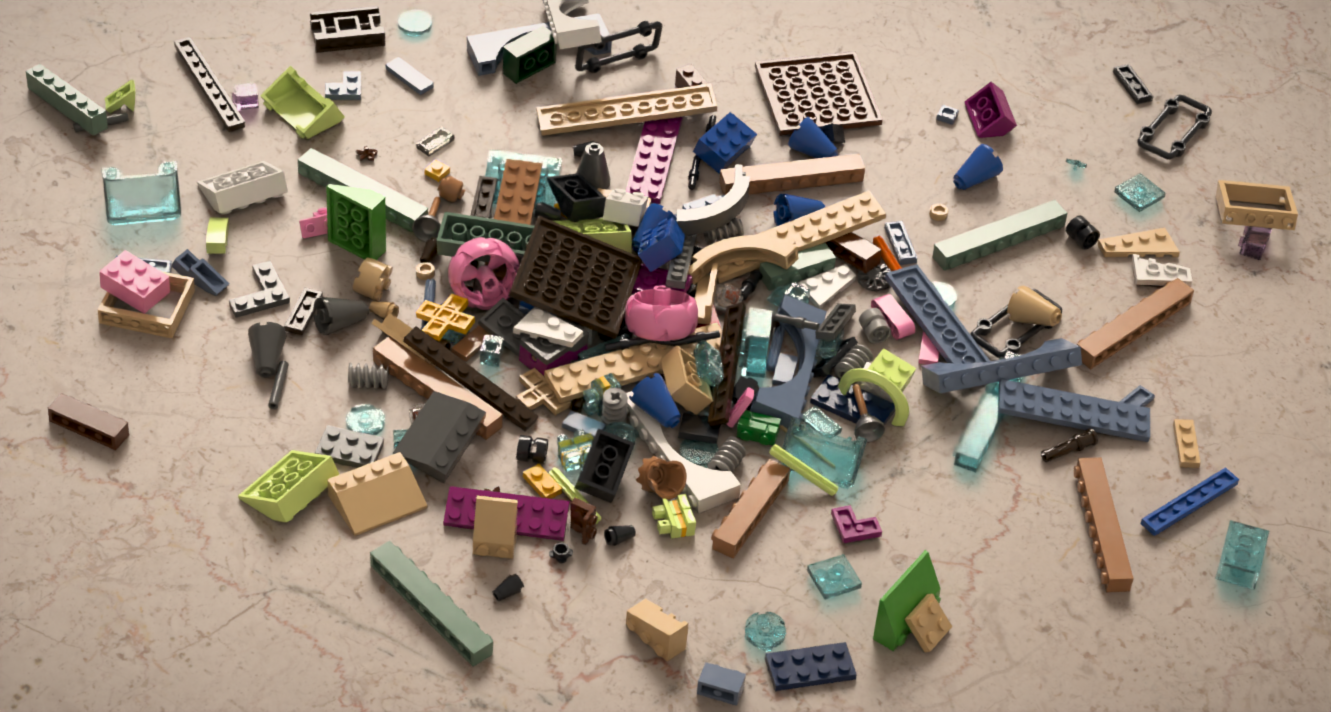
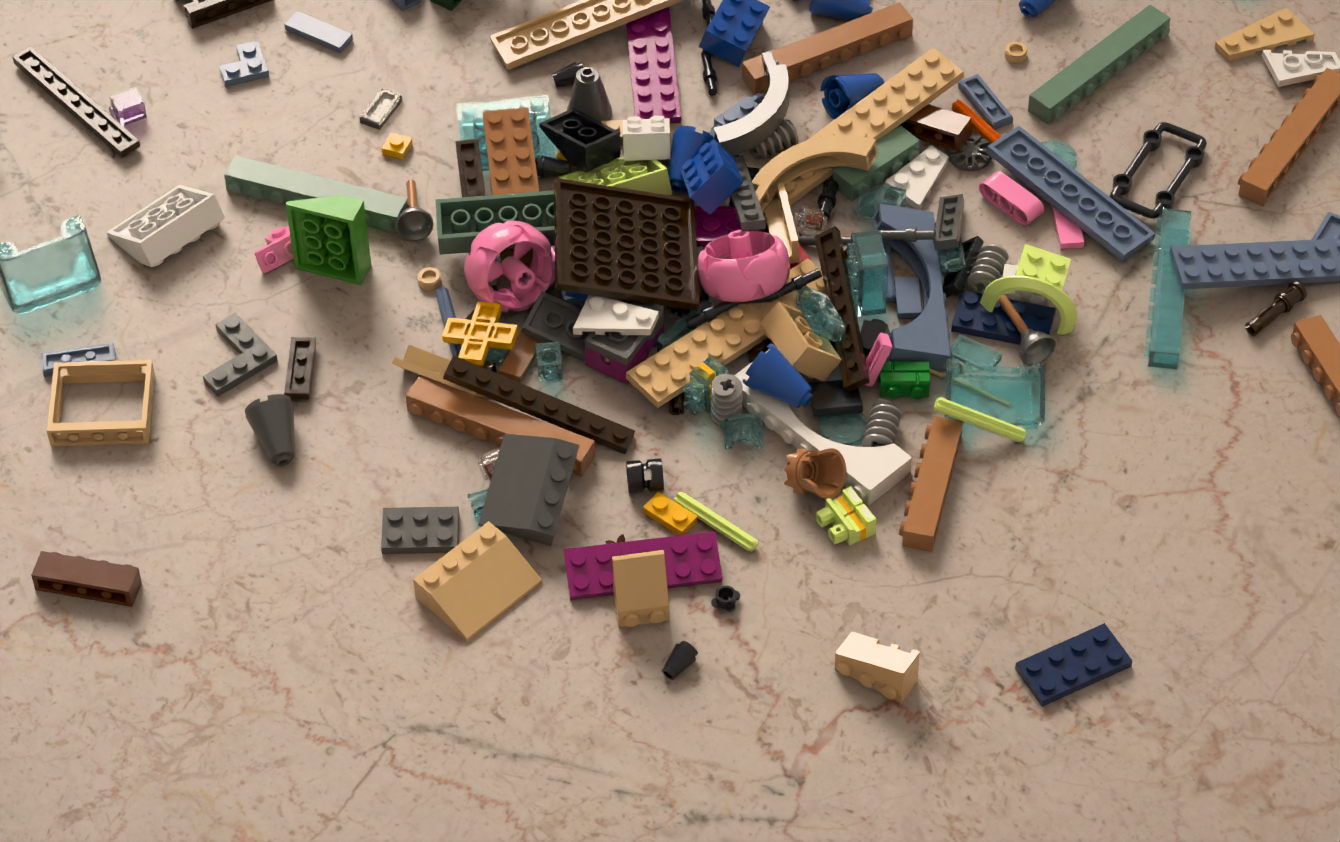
camera: 10 degrees left, 5 degrees up
(134, 282) = (82, 384): bright pink brick -> none
(203, 273) = (163, 352): sand blue slope -> none
(217, 235) = (158, 295): yellowish green slope -> none
(278, 385) = (303, 471): dark grey piece -> none
(290, 485) = (366, 596): yellowish green slope -> none
(301, 105) = (201, 102): yellowish green windscreen -> none
(338, 313) = (345, 361): dark grey cone -> none
(365, 419) = (427, 488): clear light blue tile -> none
(367, 153) = (303, 144): reddish brown plant -> none
(368, 376) = (410, 431): light grey piece -> none
(372, 279) = (372, 306): tan brick -> none
(384, 308) = (398, 340): tan cone -> none
(430, 251) = (427, 251): dark brown cone -> none
(431, 603) = (594, 704): sand green brick -> none
(451, 189) = (424, 166): medium nougat head -> none
(539, 393) = (626, 401): tan plate -> none
(574, 450) = (699, 463): clear light blue hips -> none
(576, 421) = (693, 429): sand blue tile -> none
(583, 519) = (741, 550): reddish brown bracket -> none
(604, 465) = (742, 475): black brick -> none
(617, 534) = (786, 557): black cone -> none
(721, 683) = (978, 715): sand blue brick -> none
(761, 639) = (1000, 645): clear light blue plate -> none
(834, 576) = (1061, 544): clear light blue plate -> none
(853, 529) = (1059, 478): magenta plate -> none
(874, 325) = (995, 215): light grey wheel -> none
(901, 599) = (1164, 559): bright green slope -> none
(928, 623) = (1195, 574): tan plate -> none
(1032, 308) = (1175, 148): tan cone -> none
(1051, 356) = (1219, 202): sand blue arch -> none
(1082, 232) = (1196, 38): black wheel -> none

